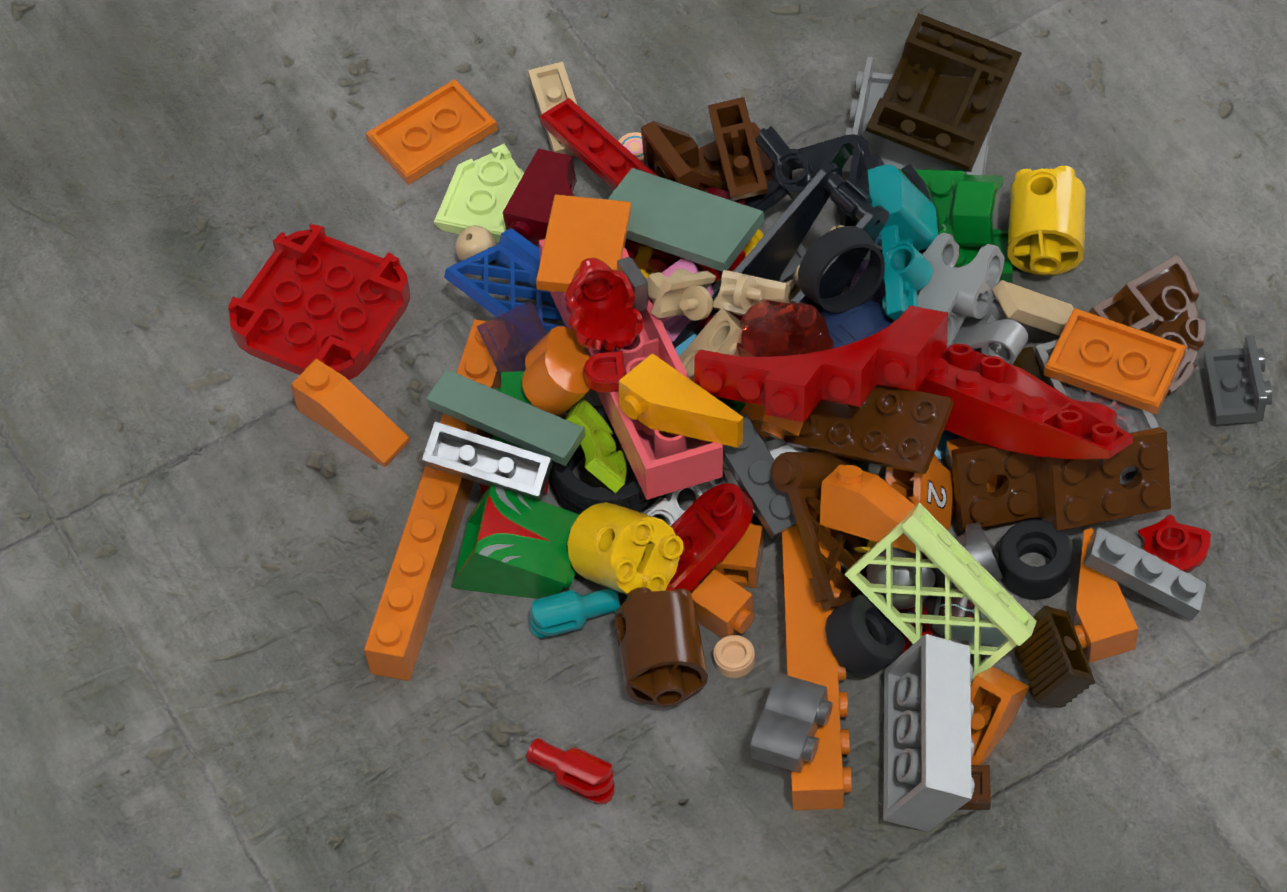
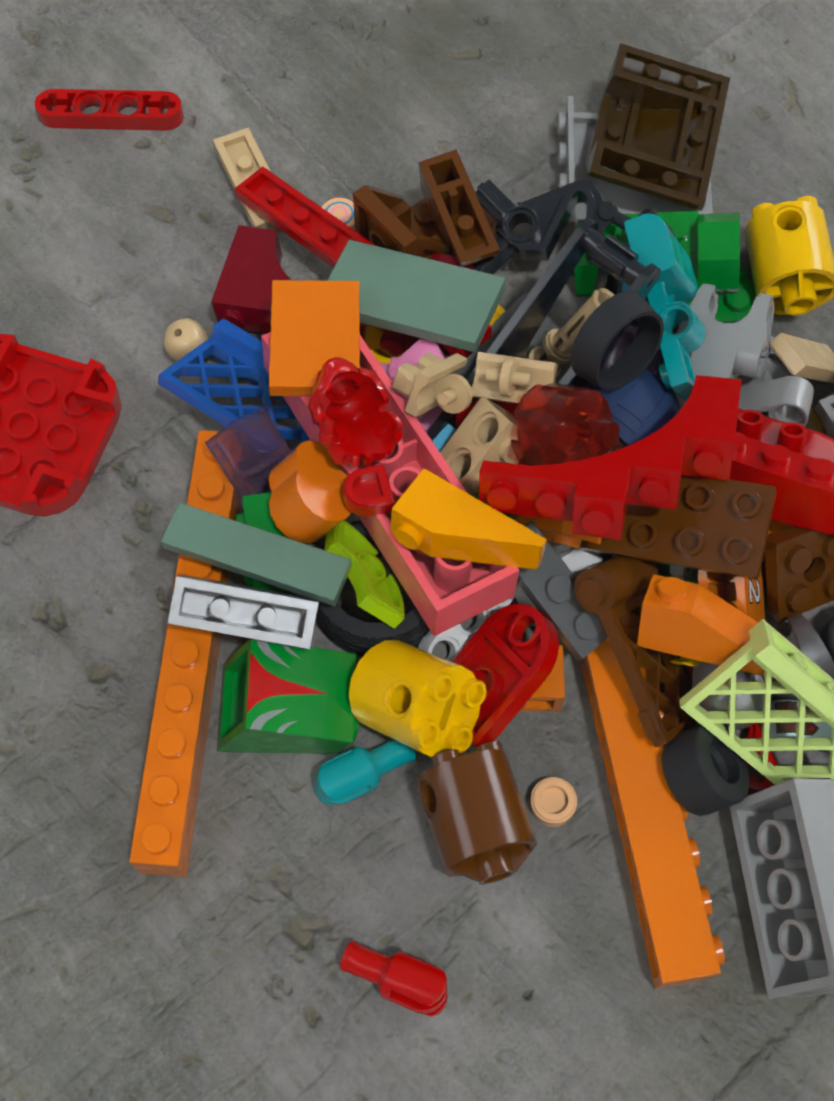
camera: 15 degrees left, 10 degrees up
(347, 413) = (70, 553): orange slope -> none
(431, 131) = (118, 216): orange tile -> none
(435, 39) = (110, 104): none -> red beam
(480, 193) = (182, 281): yellowish green tile -> none
(637, 280) = (391, 380): flat silver tile -> none
(723, 605) = (534, 745): orange brick -> none
(790, 723) = (650, 902): flat silver brick -> none

